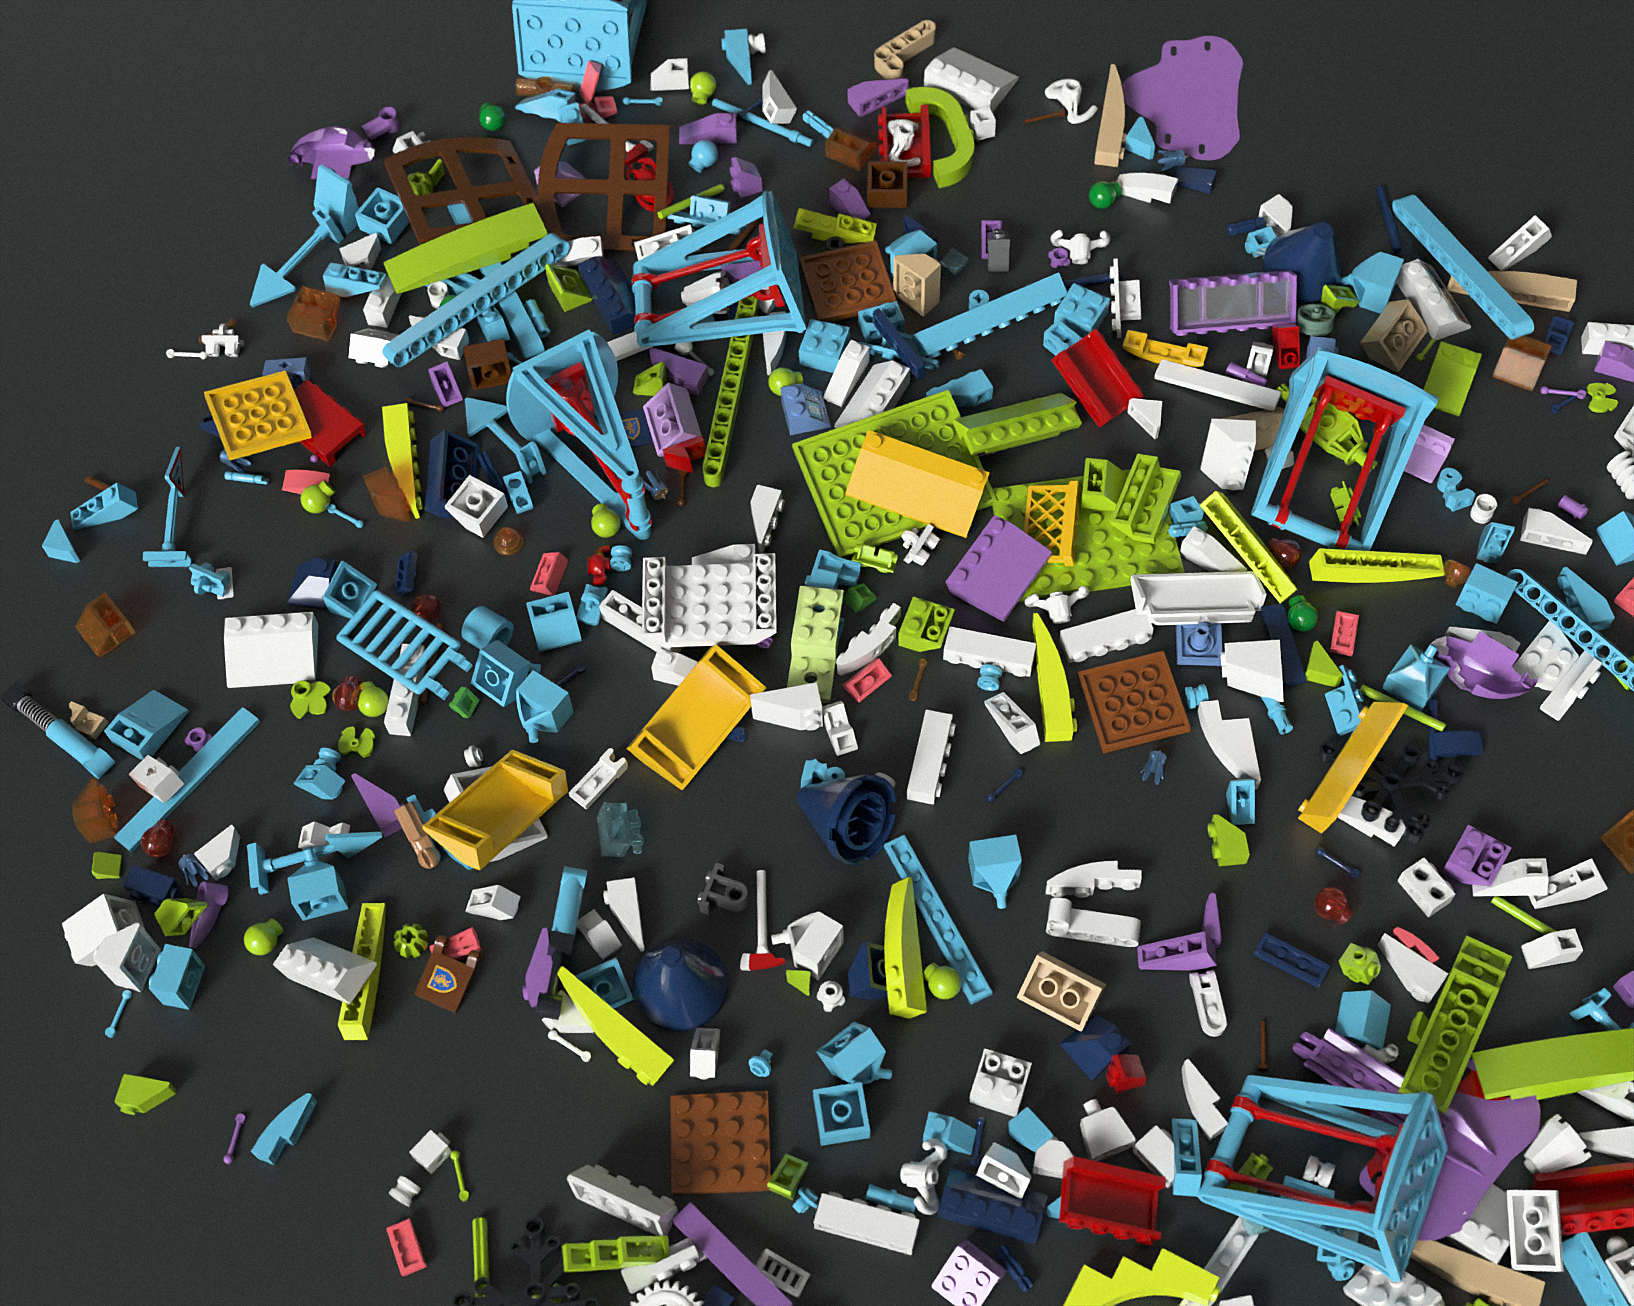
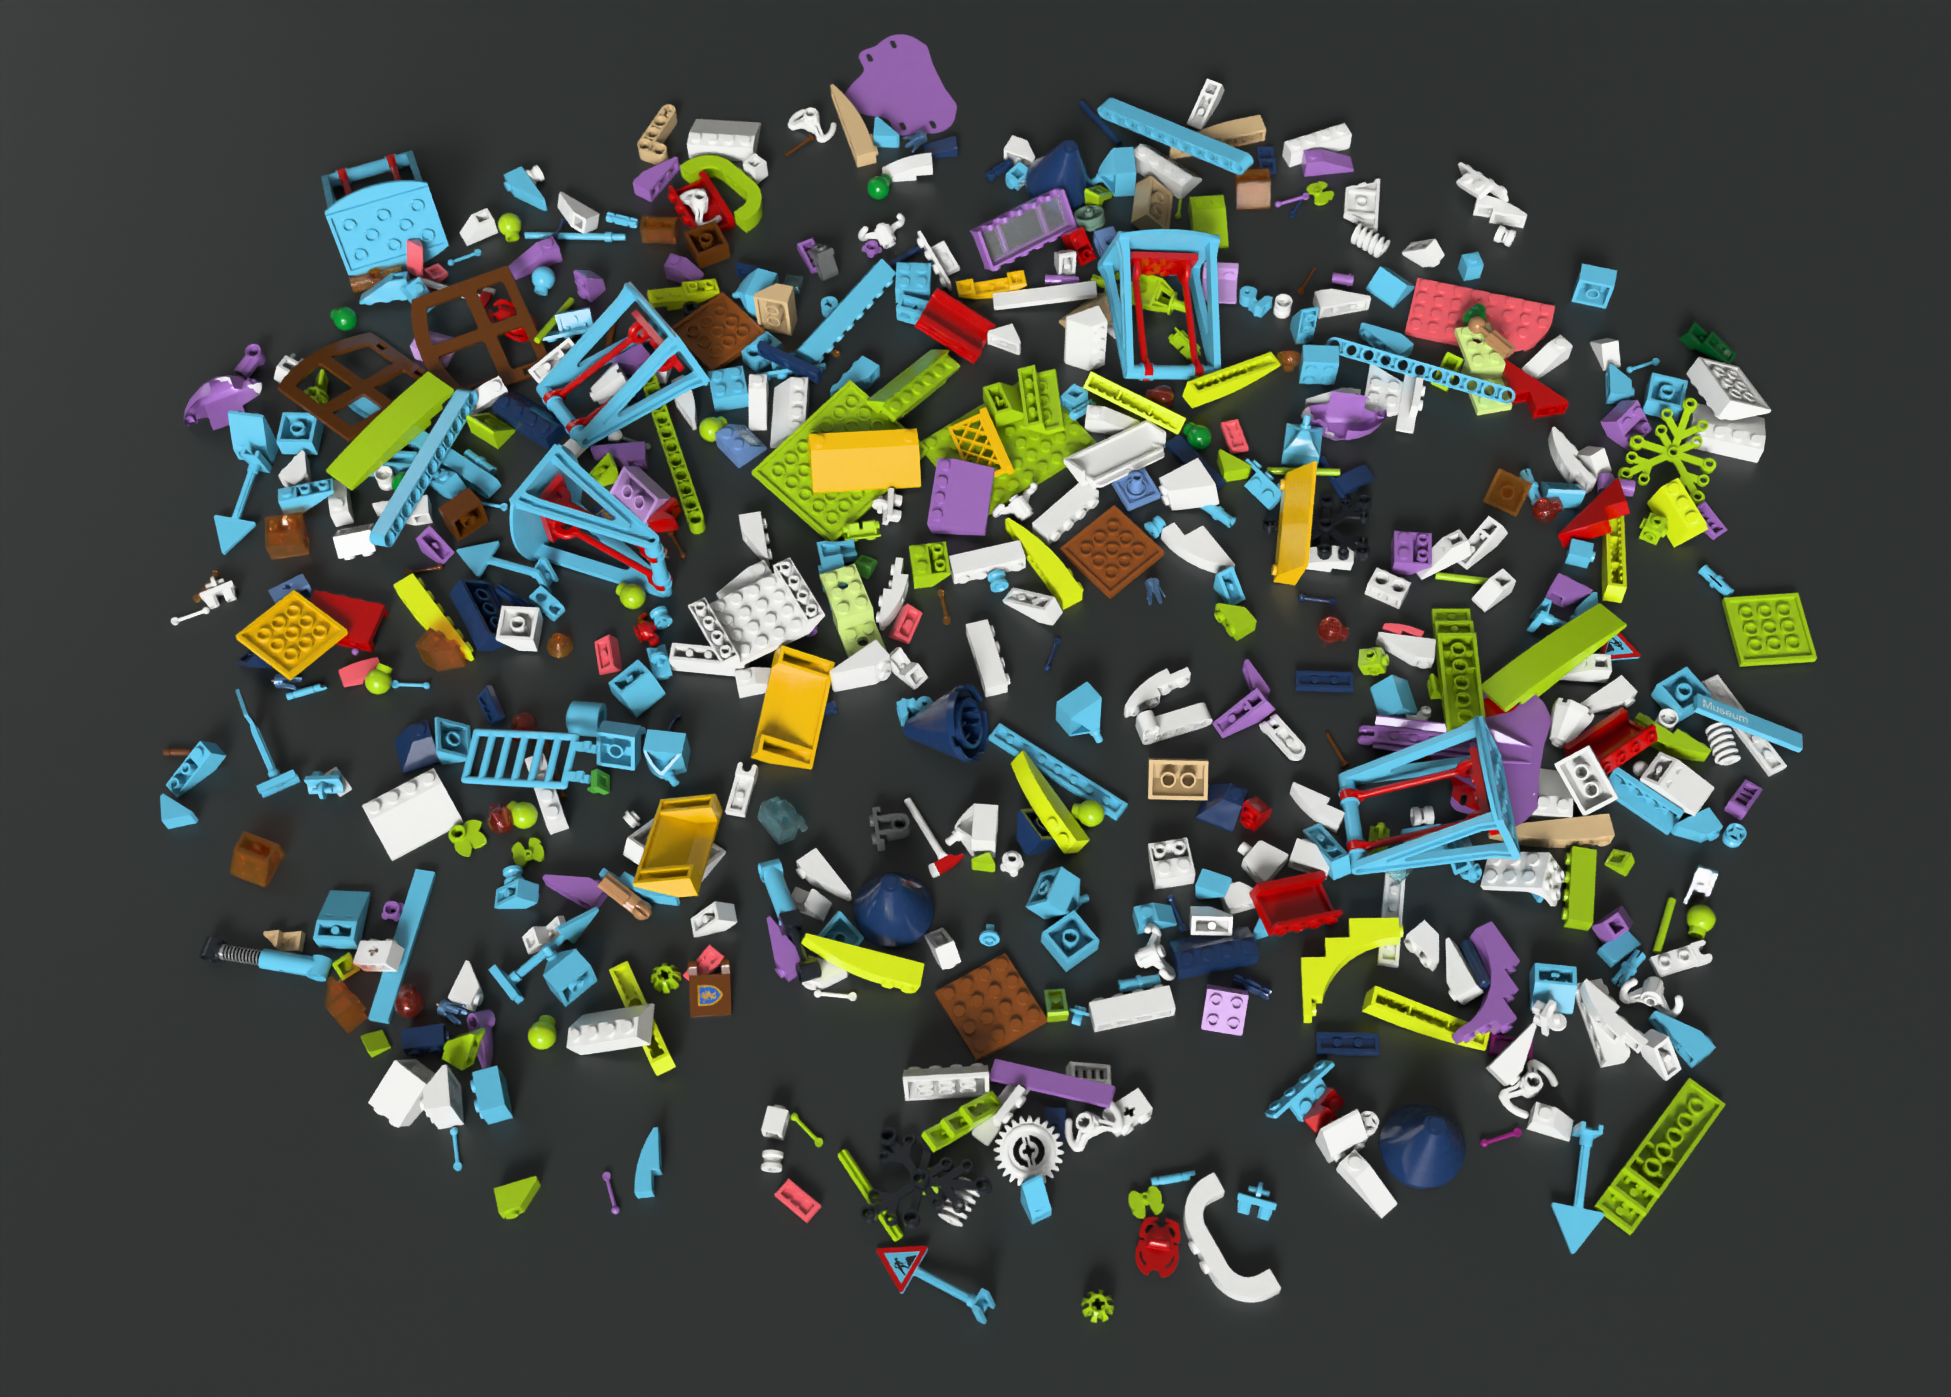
camera: 30 degrees left, 0 degrees up
(121, 773) = (344, 966): none -> lime slope

